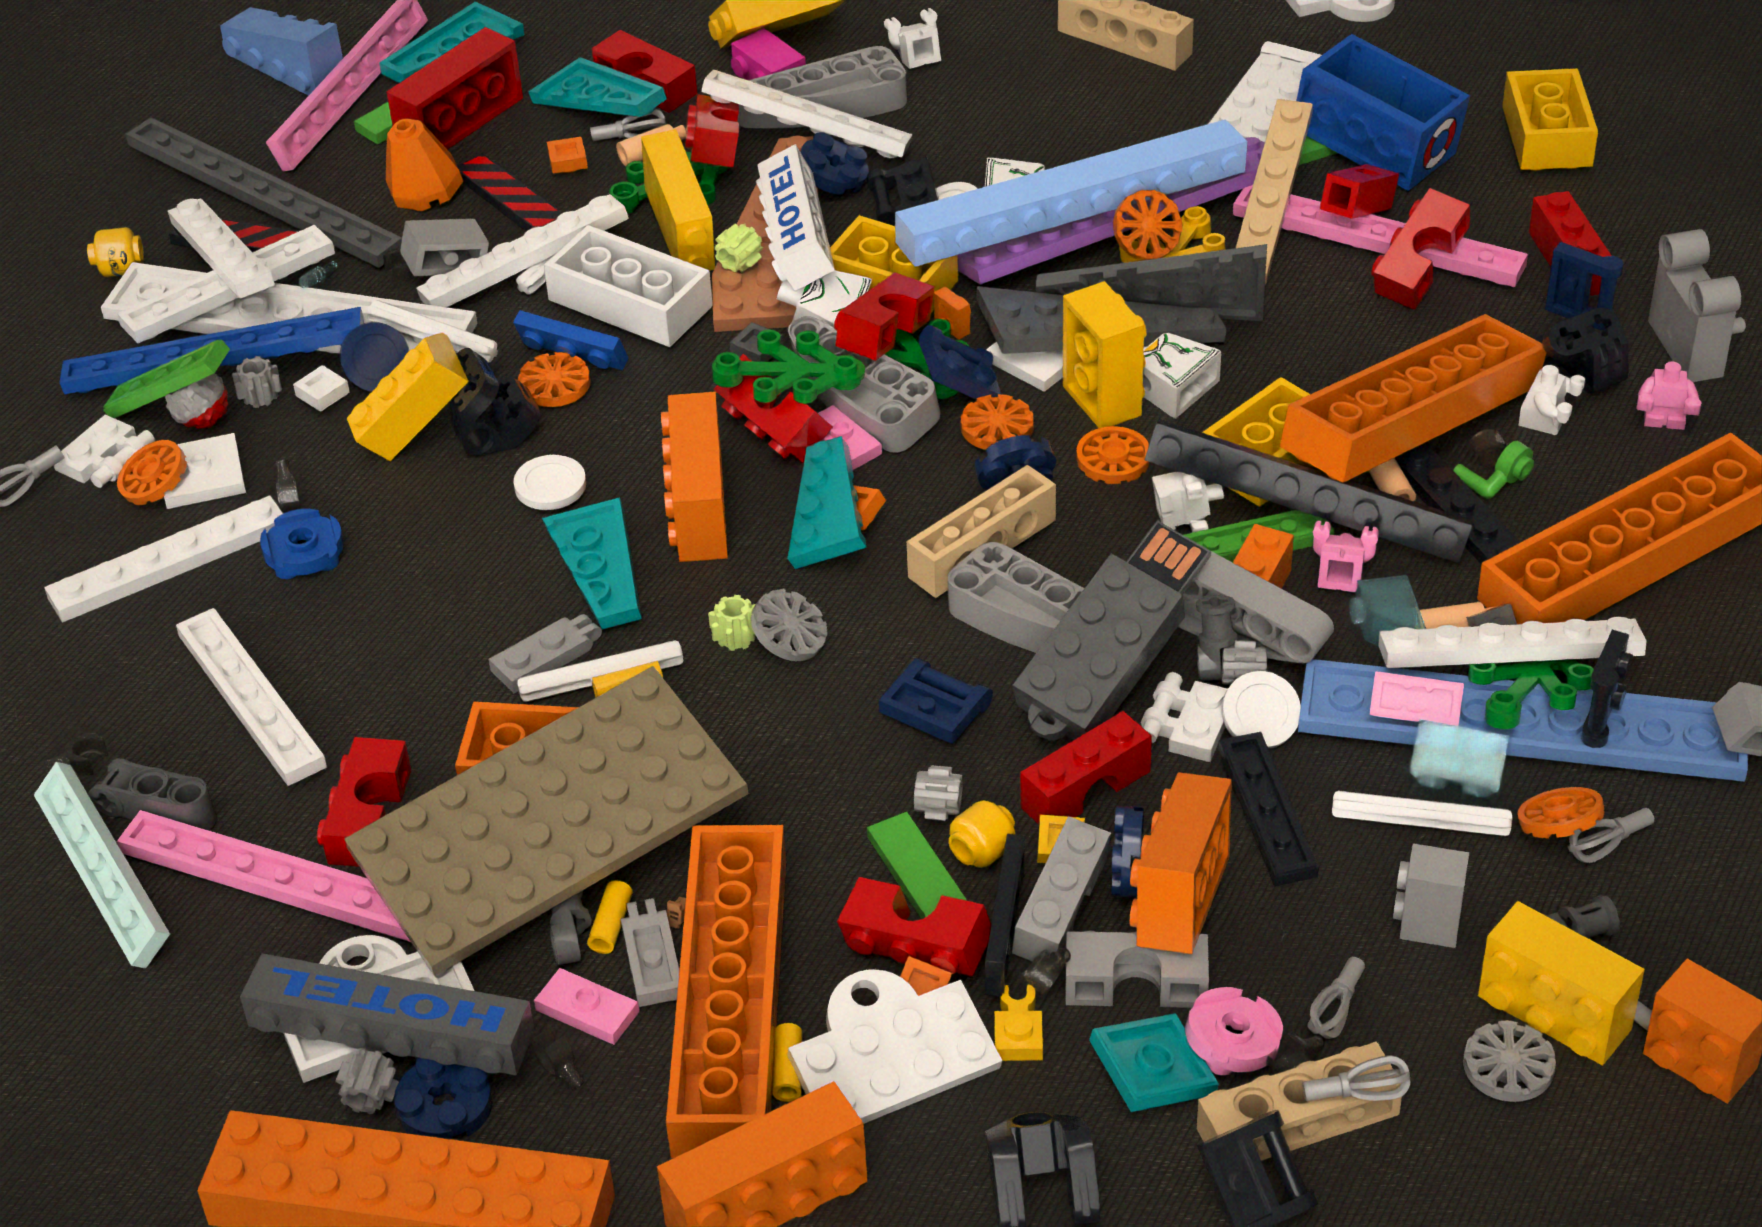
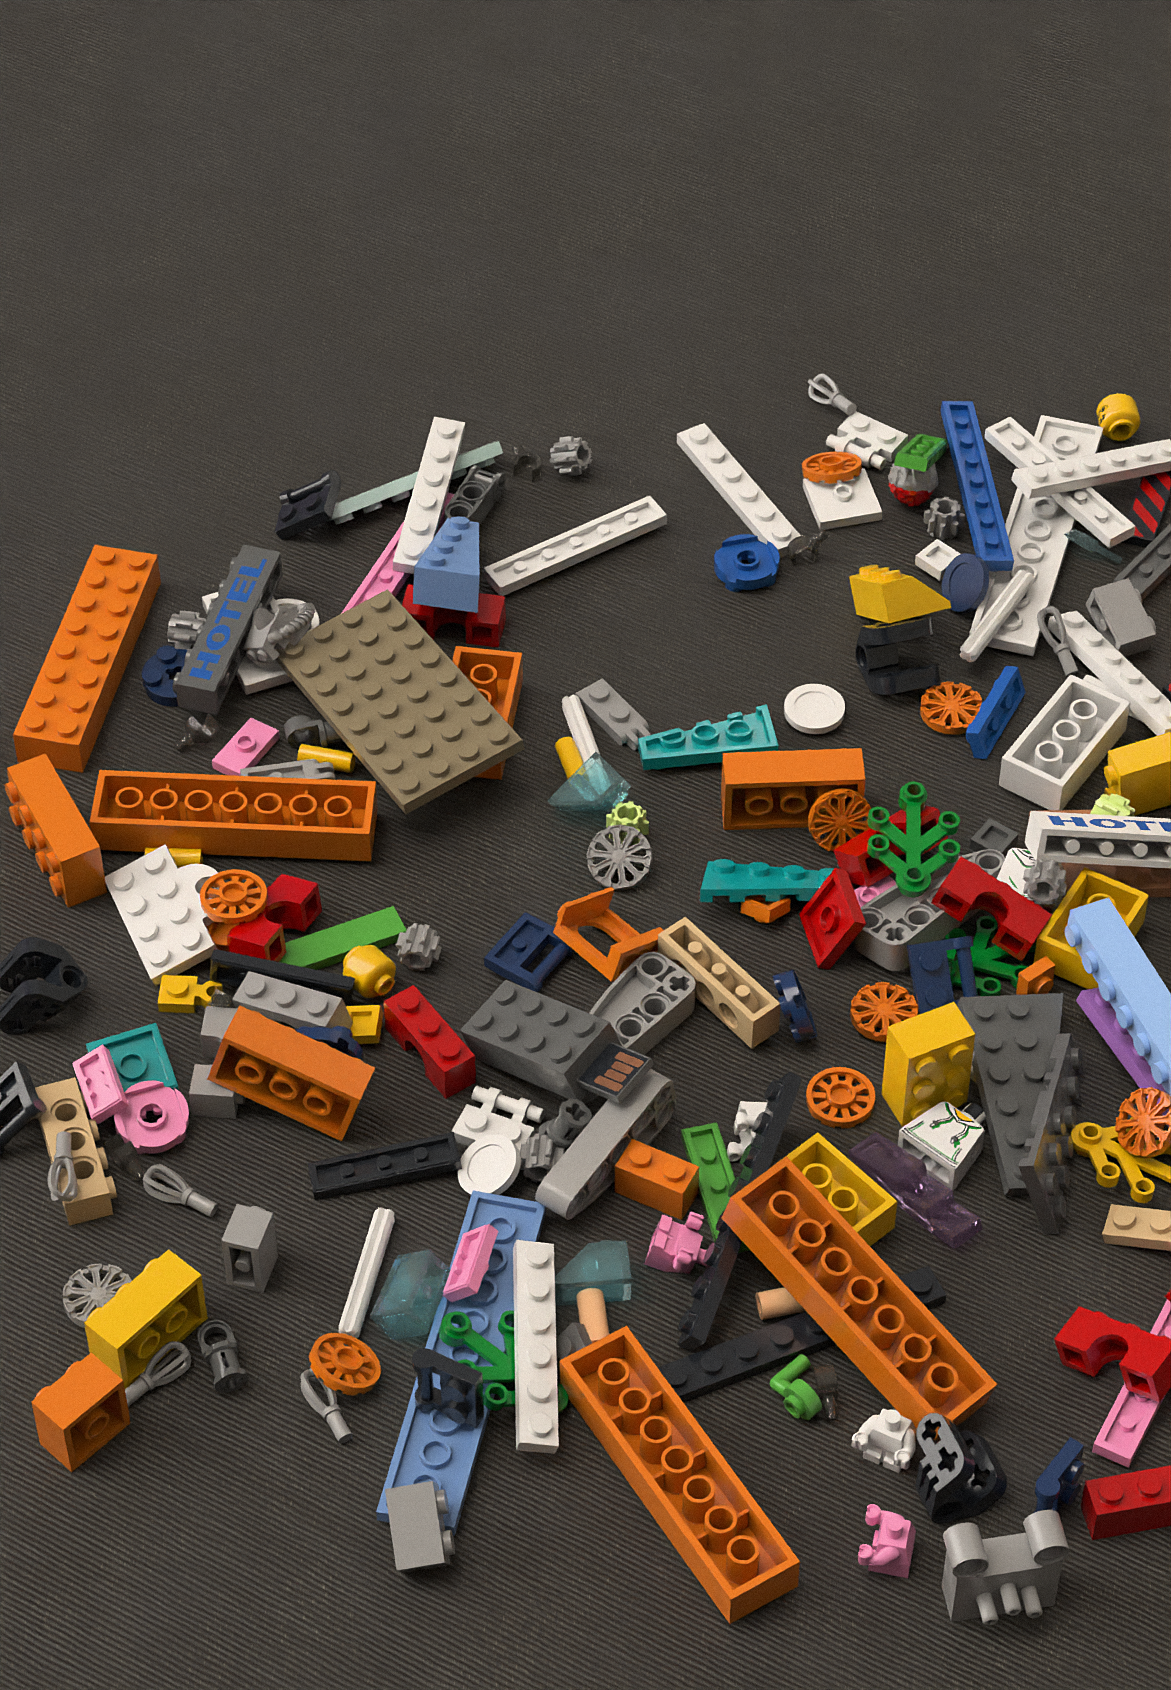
camera: 90 degrees right, 5 degrees up
(87, 701) = (570, 455): none -> light grey gear
(152, 822) = (429, 492): none -> white plate
(152, 963) = (308, 505): none -> black plate
(308, 776) = (450, 568): none -> medium blue wedge
(435, 955) = (276, 631): none -> light grey piece
(476, 295) = (1062, 649): none -> light grey piece
(688, 644) = (591, 788): none -> clear light blue slope
(740, 443) = (839, 818): none -> orange wheel
(860, 267) = (1044, 882): none -> light grey gear
(890, 442) = (832, 918): none -> red plate
(897, 947) = (233, 896): none -> orange wheel
(934, 595) = (595, 911): none -> orange panel
(1203, 1072) = (100, 1084): none -> bright pink plate
(1243, 381) = (915, 1191): none -> clear purple slope

